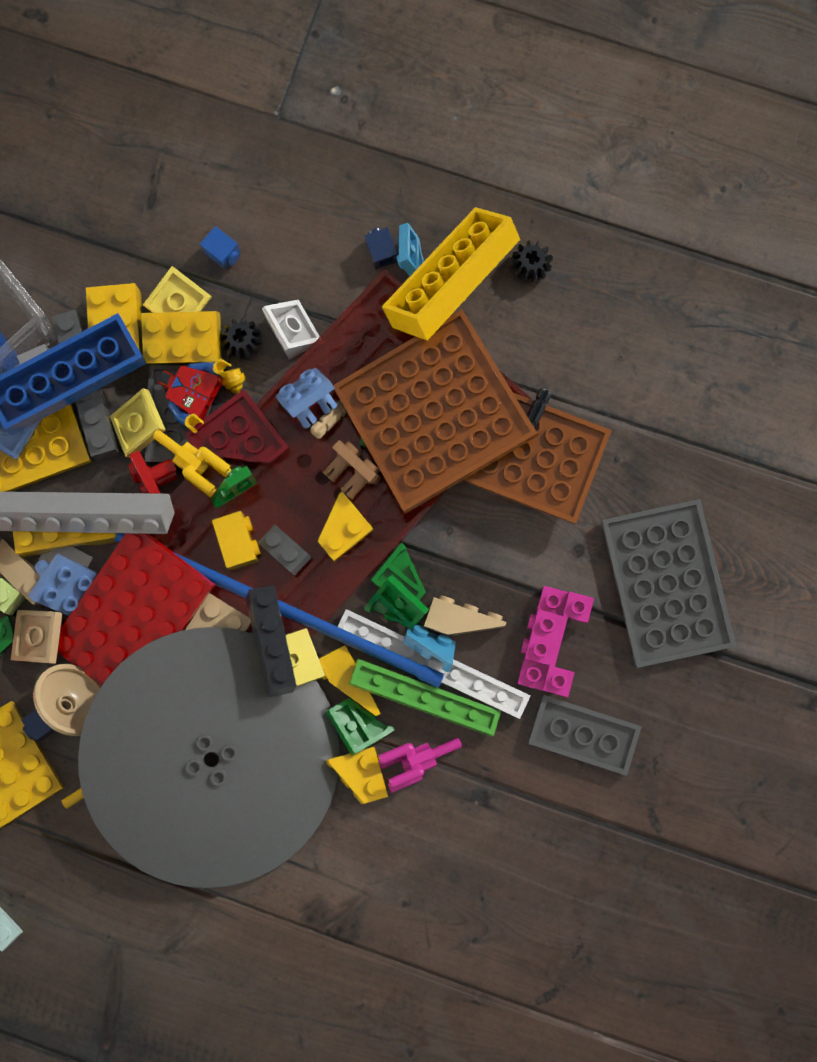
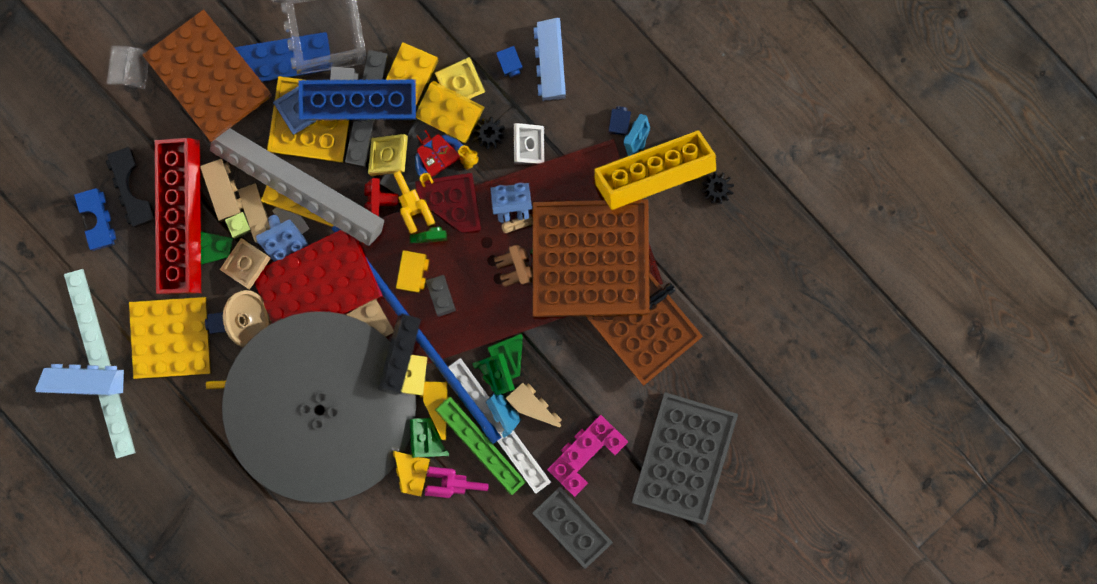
camera: 25 degrees right, 5 degrees up
(266, 219) = (551, 59): none -> light blue slope
(343, 528) = (488, 303): yellow wing -> none

